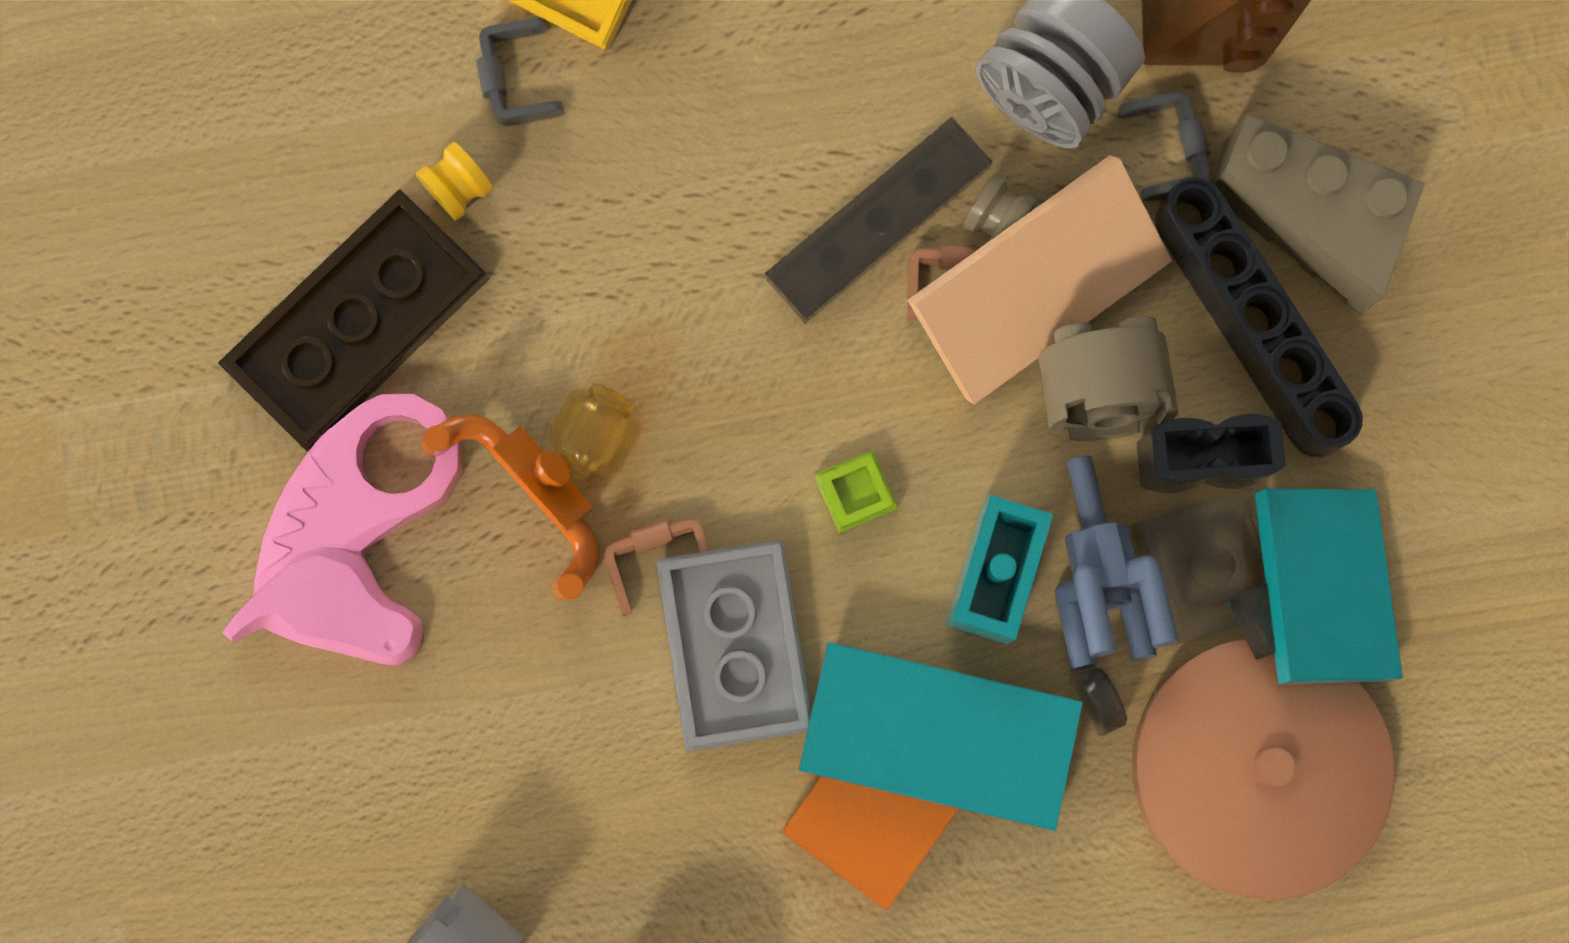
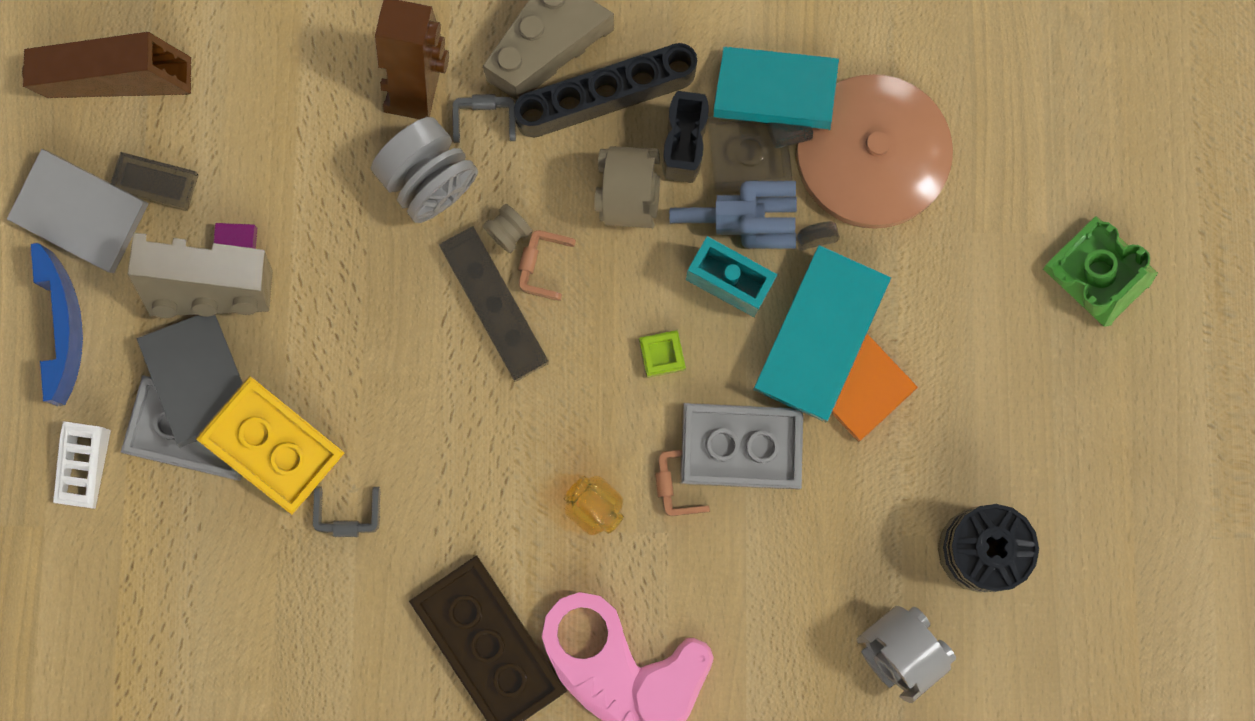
camera: 75 degrees left, 0 degrees up
(454, 181) = (412, 563): yellow wheel -> none
(542, 477) = (617, 542): orange piece -> none
(1039, 275) = (556, 212): light nougat tile -> none

